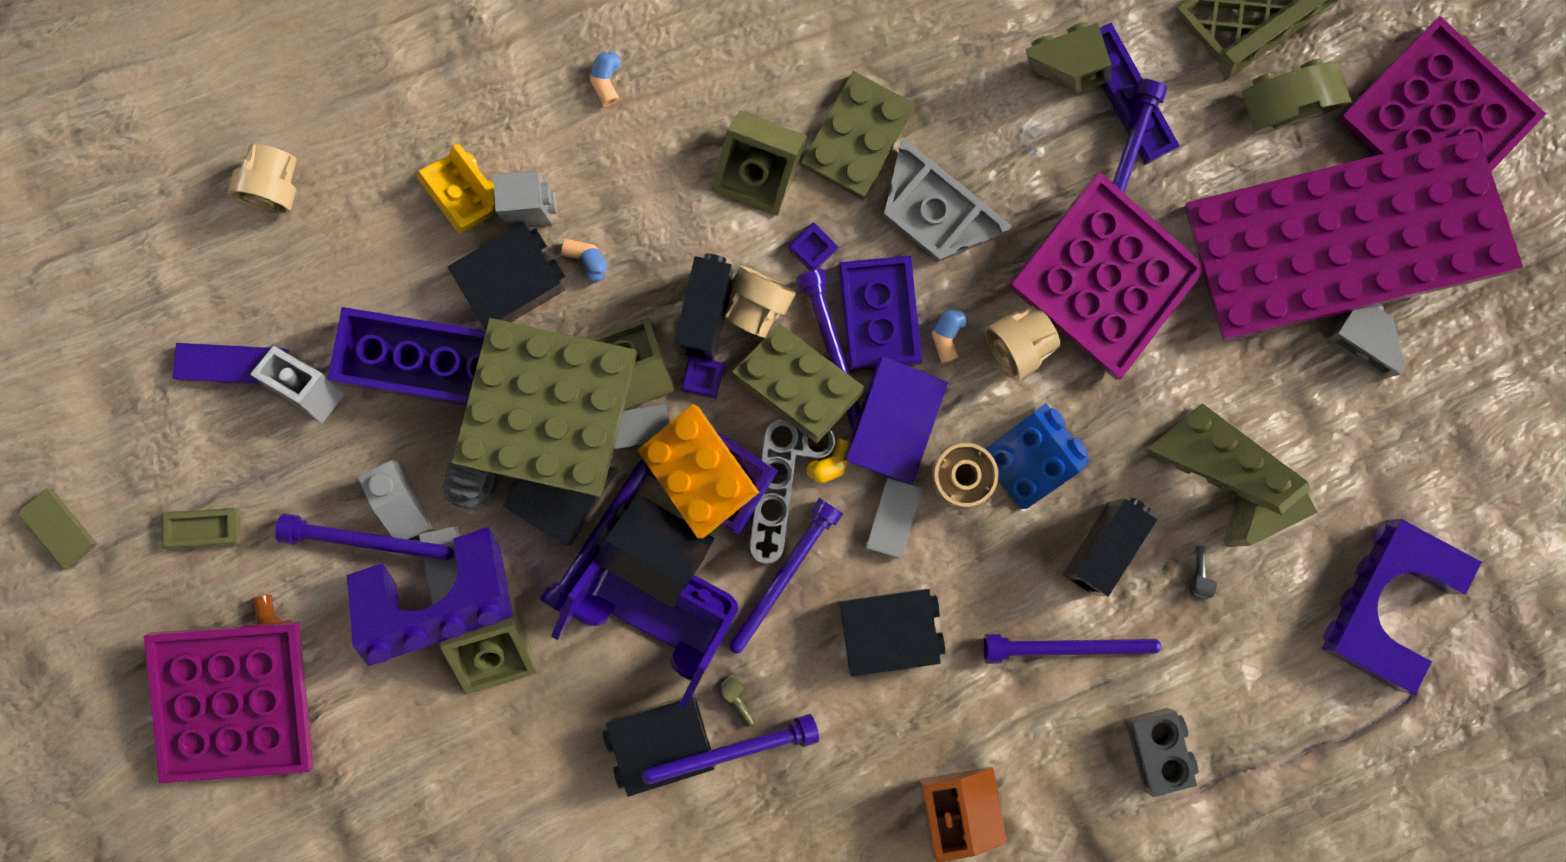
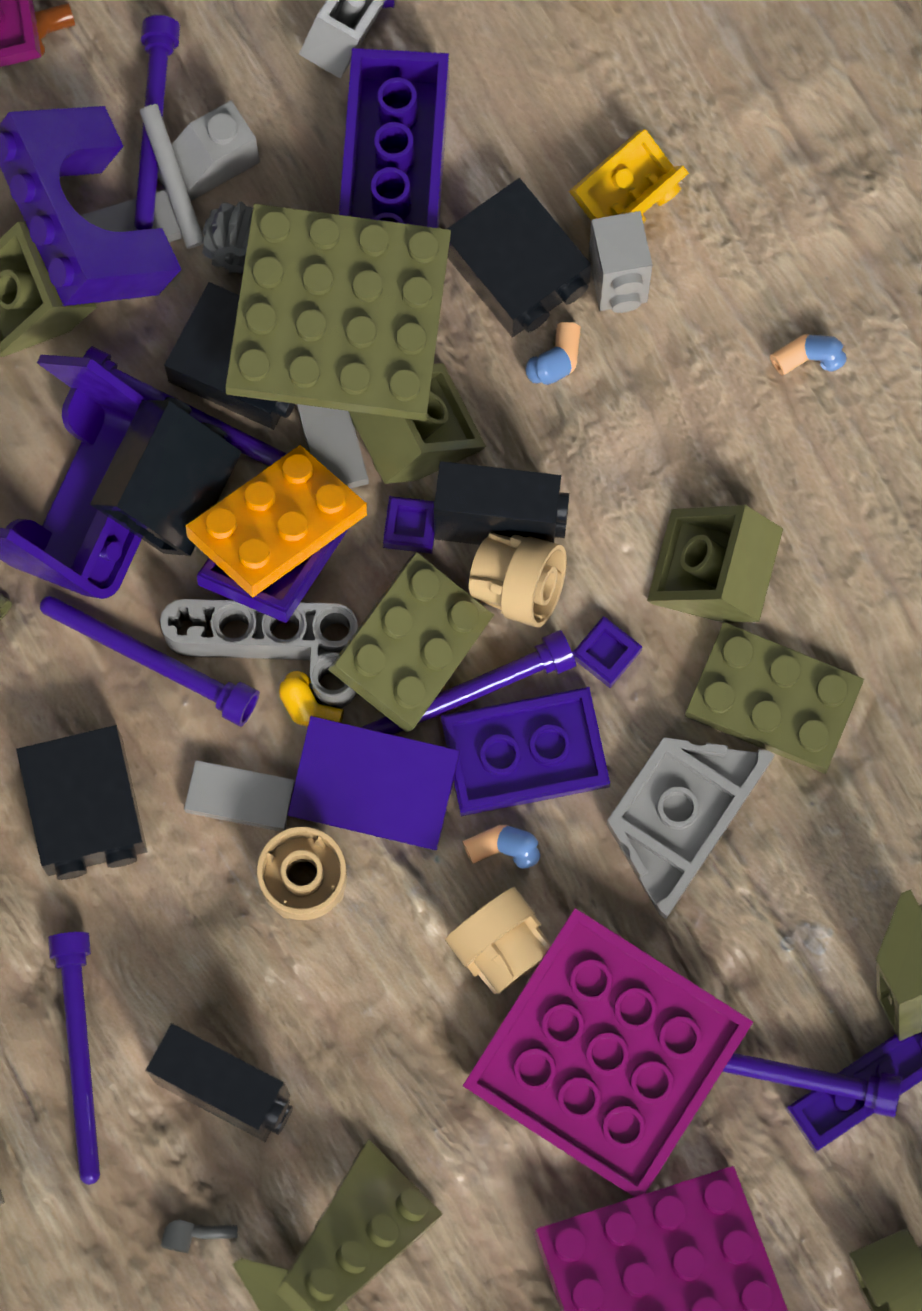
camera: 85 degrees right, 10 degrees down
(410, 528) = (172, 176): none -> light grey bar
(1037, 456) = (344, 982): blue bracket -> none

